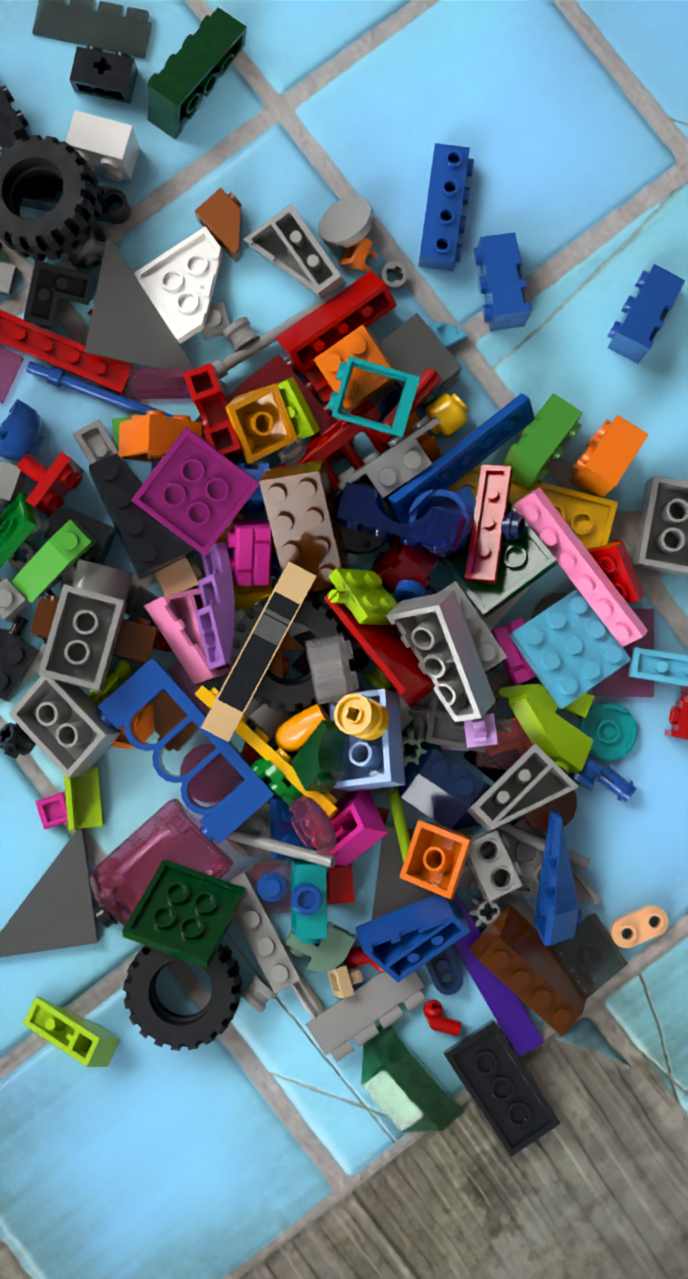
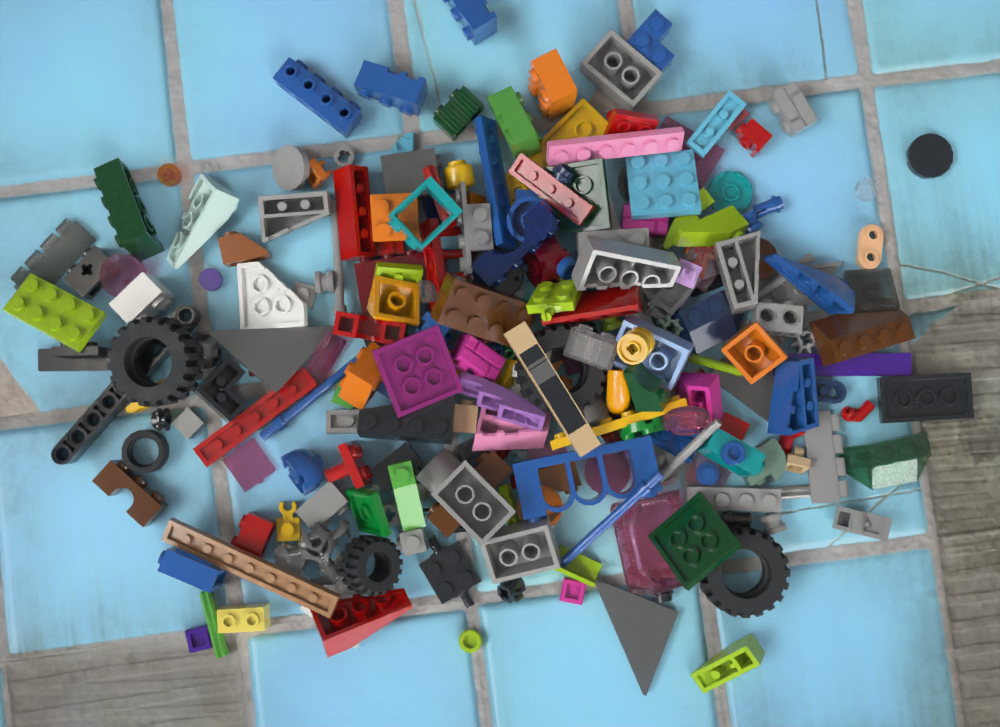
camera: 55 degrees left, 0 degrees up
(34, 59) = (55, 312): none -> lime plate
(120, 102) = (119, 272): none -> clear pink tile
(171, 208) = (210, 279): none -> dark purple tile
(173, 663) = (521, 453): none -> clear light blue bush
(205, 820) = (643, 489): none -> bar
(239, 948) = (737, 518): none -> clear smoke pin
(243, 161) = (208, 211): none -> light aqua wedge
(261, 95) = (169, 175): none -> clear orange tile
(315, 1094) = (862, 523): none -> light grey brick
(518, 371) = (458, 112): none -> dark green brick

